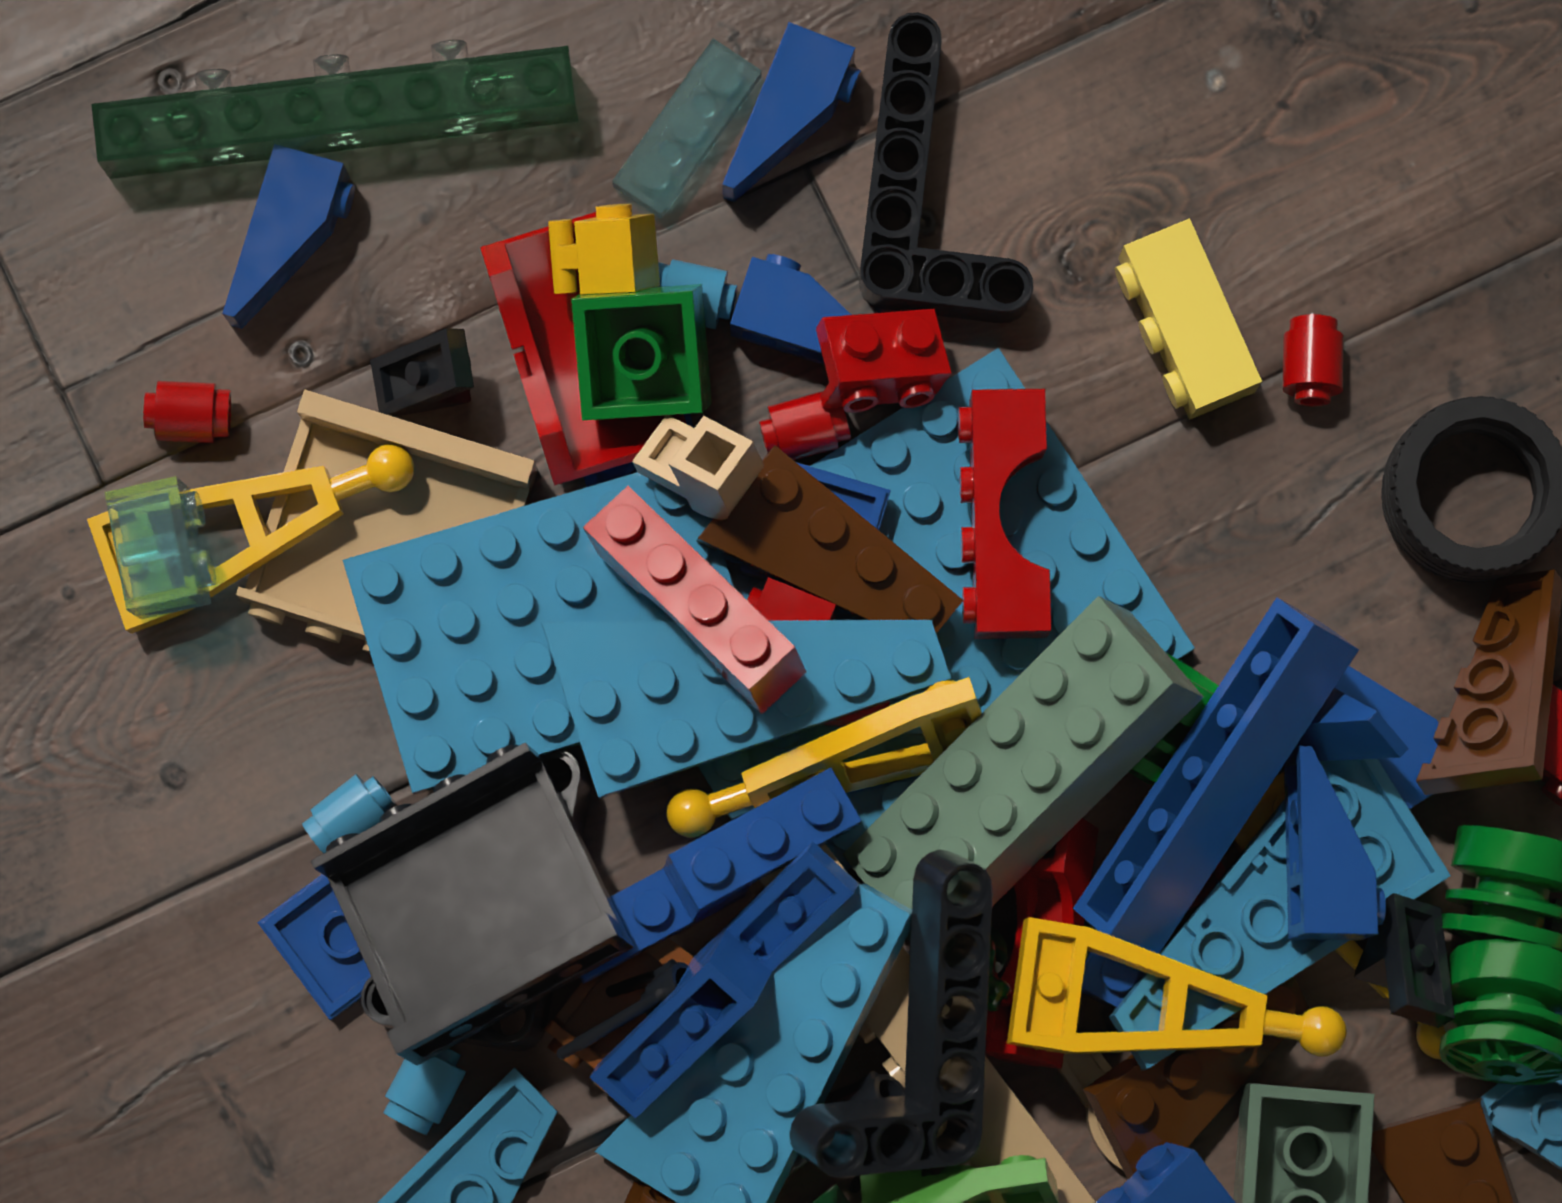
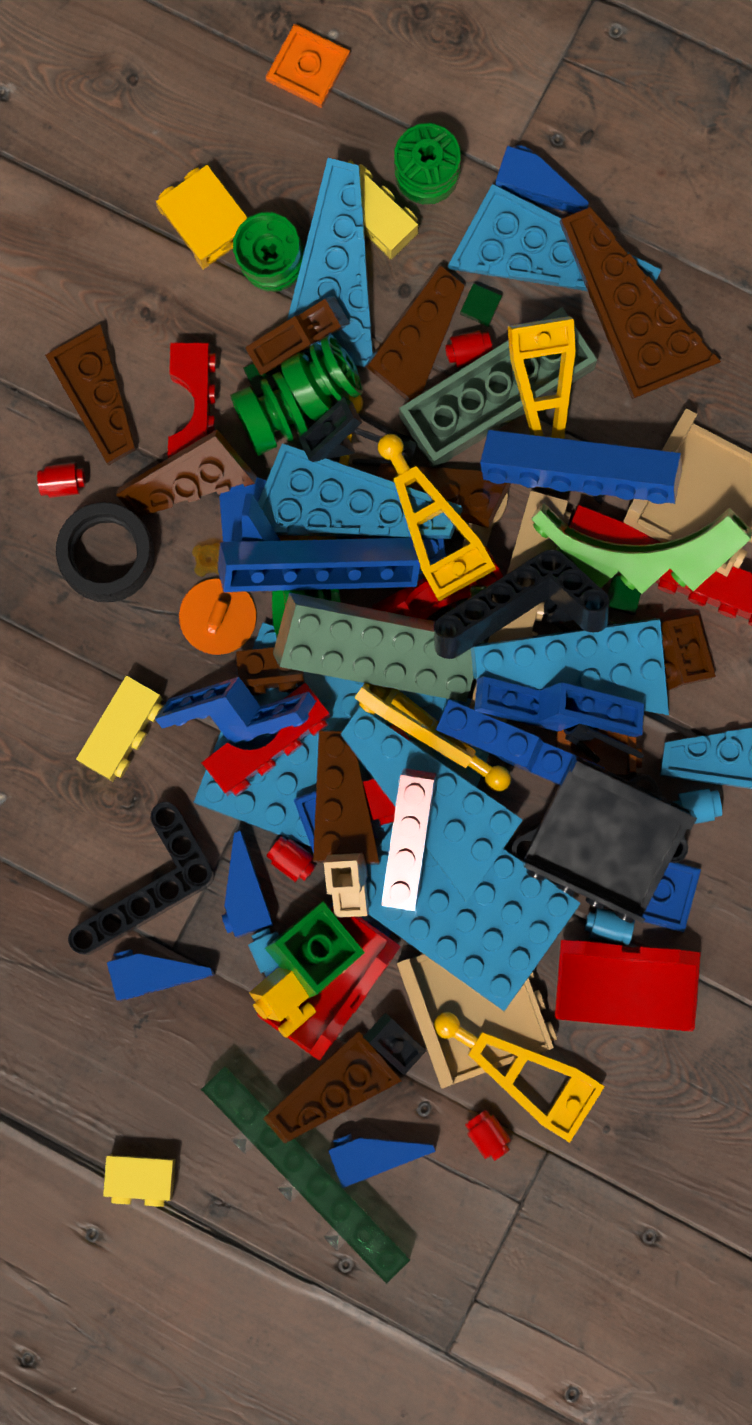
camera: 120 degrees left, 0 degrees up
(160, 547) = (558, 1096): clear light blue brick -> none
(244, 776) = (627, 985): none -> red panel
(424, 234) = (334, 1087): none -> reddish brown wing
(687, 128) = (195, 1013): clear light blue plate -> none
(882, 359) = (238, 844): red bracket -> none
(1084, 496) = (236, 710): none -> blue bracket
(1120, 575) = (261, 671): none -> reddish brown bracket
(1241, 573) = (216, 619): none -> orange shield
(1308, 1068) = (408, 445): none -> black plant
(1313, 359) = (98, 663): red brick -> none
(1328, 870) = (321, 492): blue slope -> none
(1368, 634) = (201, 553): none -> clear yellow plate

